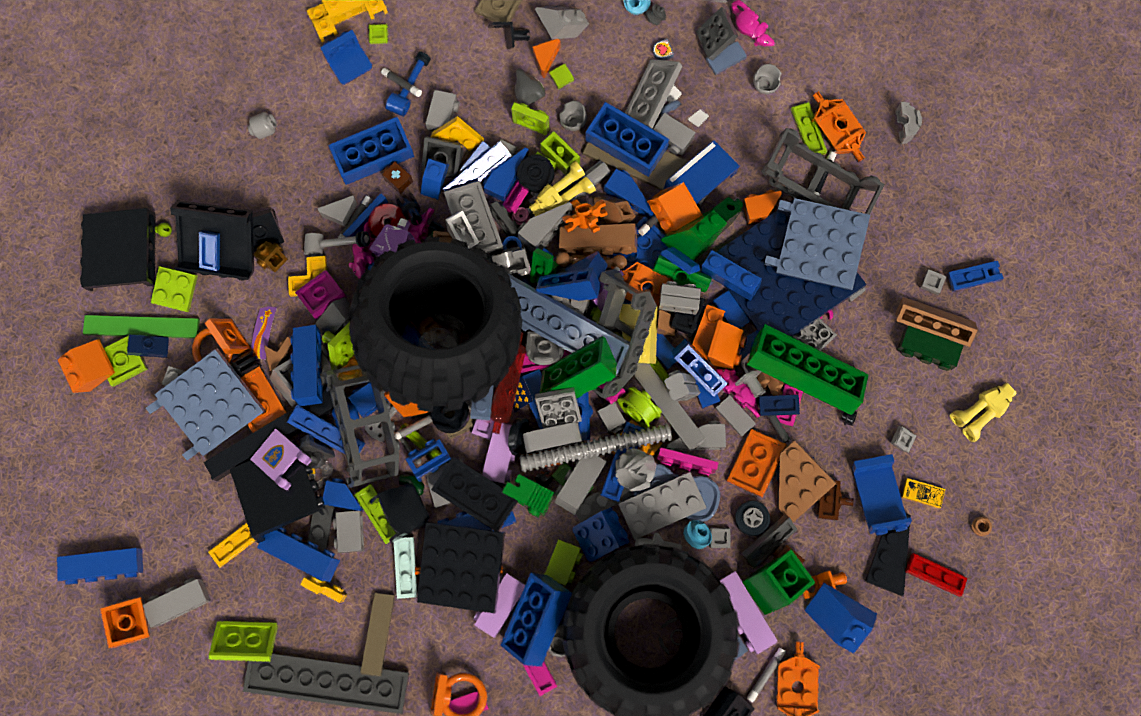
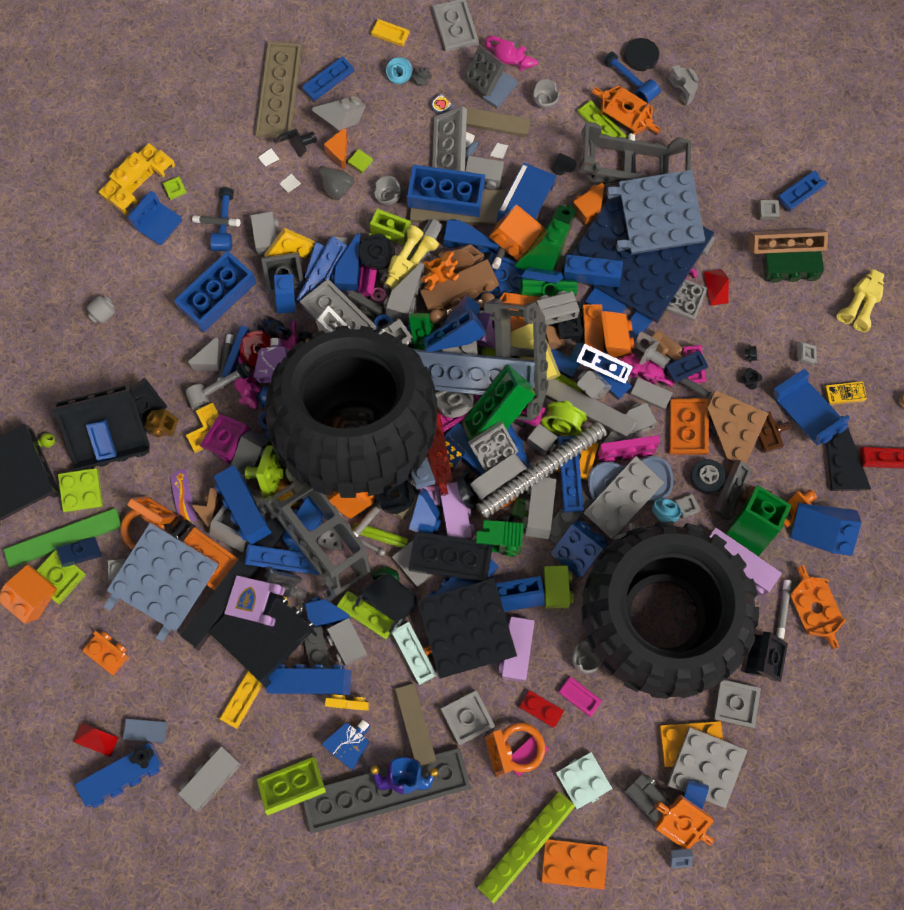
camera: 25 degrees left, 5 degrees down
(94, 523) = (96, 739): none -> red slope
(125, 623) = (170, 817): orange slope -> none
(129, 558) = (143, 762): none -> black plate
(134, 448) = (105, 653): none -> orange bracket
(139, 534) = (145, 731): none -> sand blue tile
(311, 625) = (349, 743): none -> blue torso
(344, 677) = (403, 776): none -> blue piece
(397, 177) = (249, 306): reddish brown brick -> none
(427, 648) = (467, 718): none -> light grey plate
(431, 465) = (398, 548): blue window -> none
(470, 444) = (425, 514): none -> slope
(486, 71) = (288, 183): none -> white sticker
(498, 669) = (541, 709): none -> red plate
(525, 555) = (521, 593): none -> blue brick
(529, 118) = (350, 206): lime plate -> none
(536, 619) = (558, 645): blue brick -> none
(635, 469) = (587, 473): light grey hair -> none
(708, 88) = (498, 122): none -> dark tan tile
(753, 156) = (563, 164): none -> black tile
(808, 369) = (698, 324): green brick -> none
(840, 436) = (746, 378): none -> black plate
(846, 337) = (717, 287): none -> red slope
(867, 114) = (646, 91): none -> blue piece
(880, 75) = (641, 54): none -> black tile

